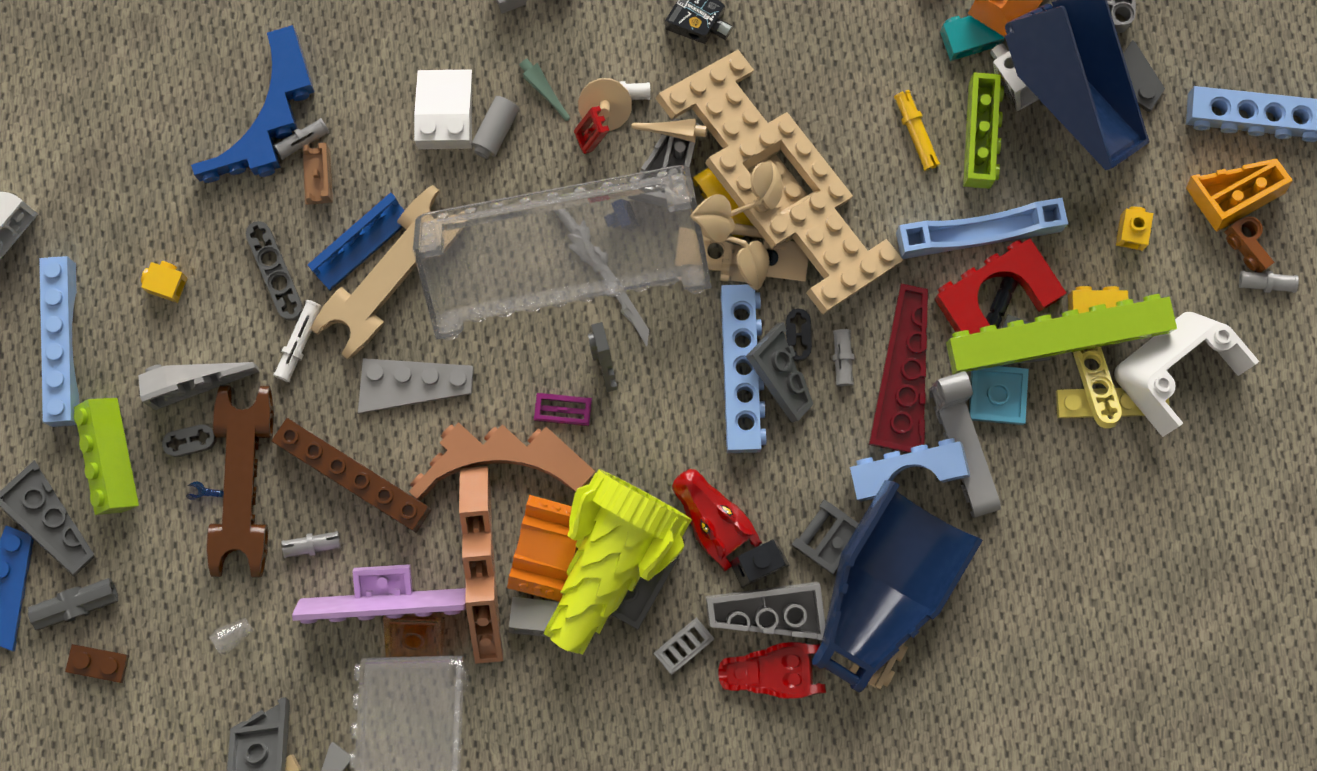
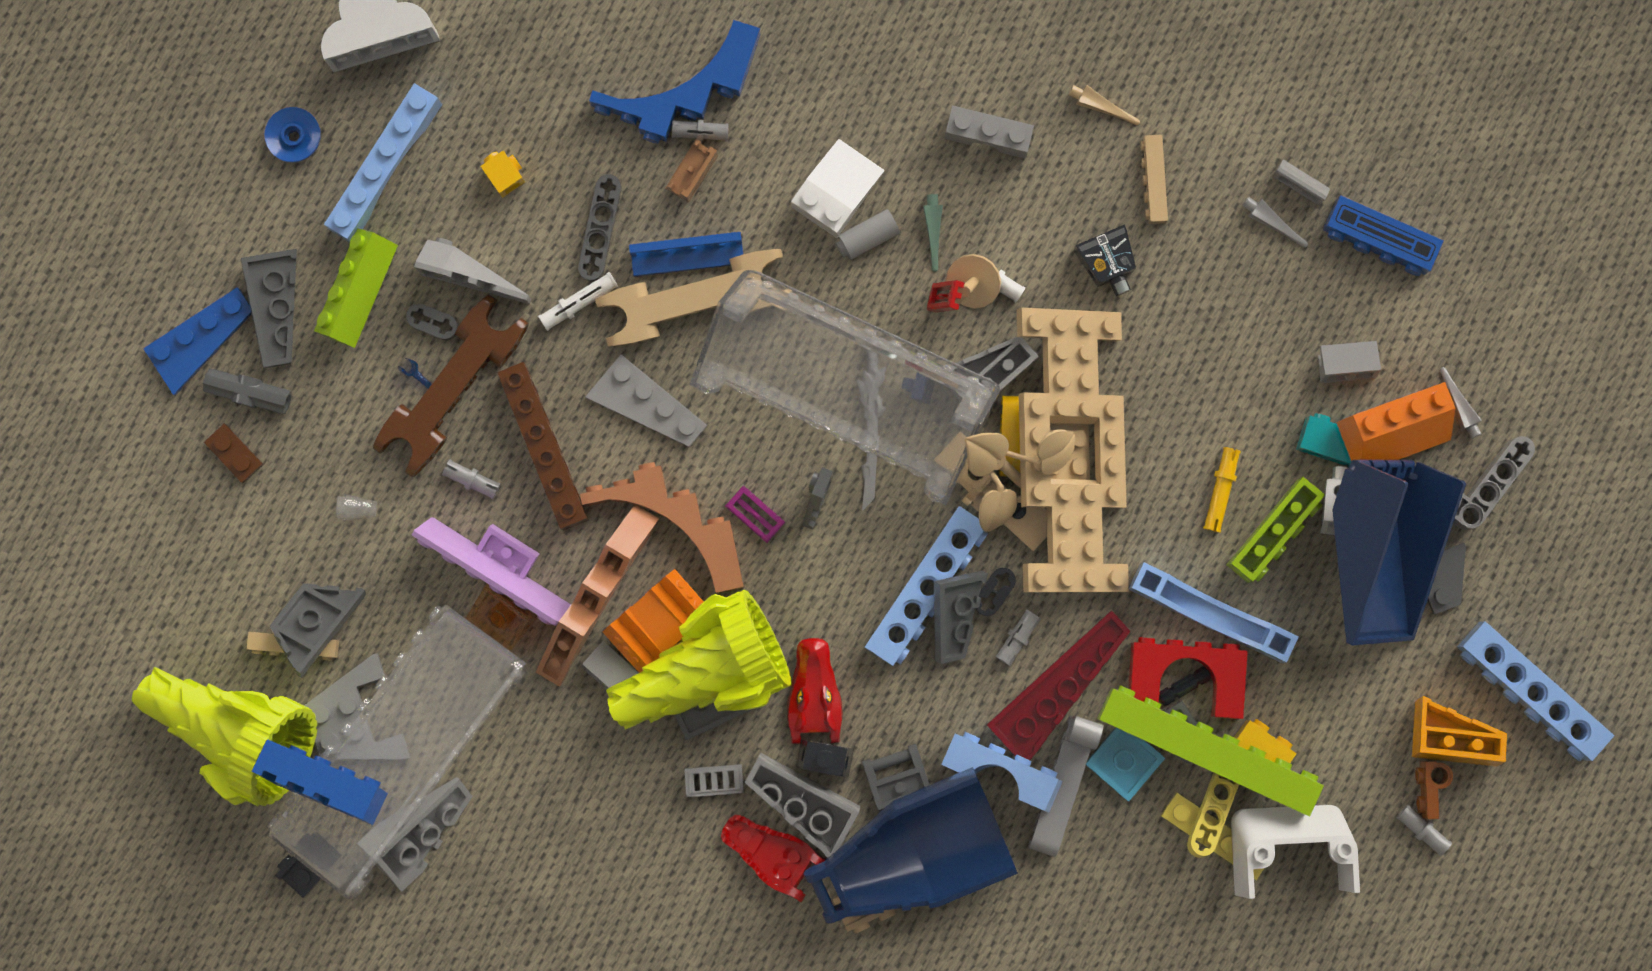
camera: 35 degrees right, 5 degrees up
(680, 129) = (1020, 352): tan piece -> none
(1134, 228) = (1343, 704): yellow brick -> none

